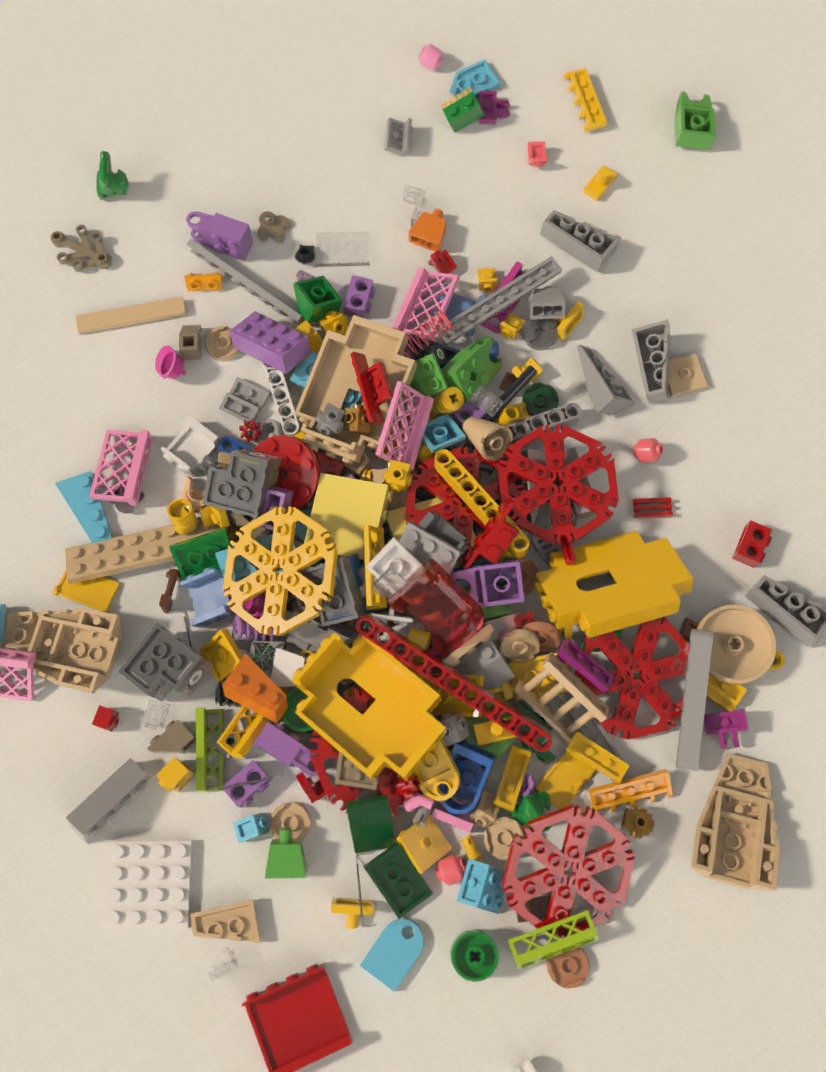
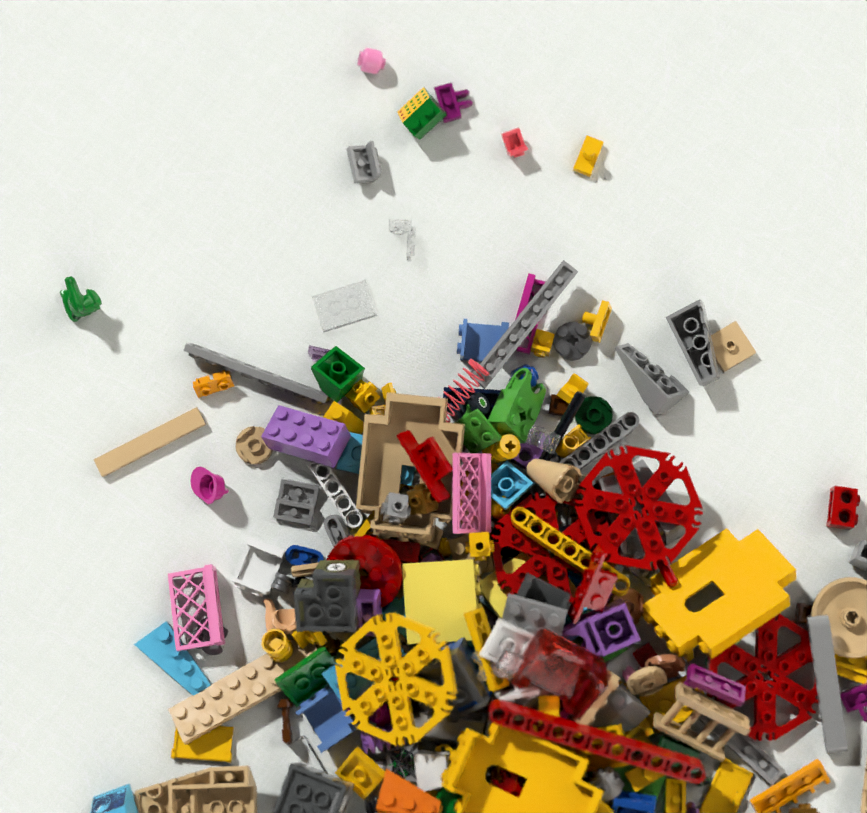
camera: 10 degrees left, 5 degrees up
(82, 250) = (75, 385): dark tan plant -> none
(191, 342) = (221, 454): dark tan slope -> none
(222, 234) = (216, 329): medium lavender brick -> none
(252, 426) = (313, 532): red gear -> none
(274, 228) = (267, 304): dark tan plate -> none
(305, 254) = (308, 323): black animal -> none
(355, 296) = (374, 357): medium lavender brick -> none
(413, 300) = (435, 341): bright pink fence -> none
(429, 230) = (428, 261): orange torso -> none
(442, 262) = (451, 293): red bracket -> none
(477, 76) = (424, 71): medium azure tile -> none
(487, 279) = (503, 298): yellow bracket -> none
(547, 304) = (572, 311): light grey torso -> none
(579, 239) = (586, 229): light grey wedge -> none
(586, 99) = (548, 63): yellow hinge -> none
(597, 757) = (750, 768): yellow plate -> none
(648, 450) = (715, 440): coral head -> none
(668, 506) = (751, 492): red tile -> none
(694, 123) = (667, 61): bright green brick -> none

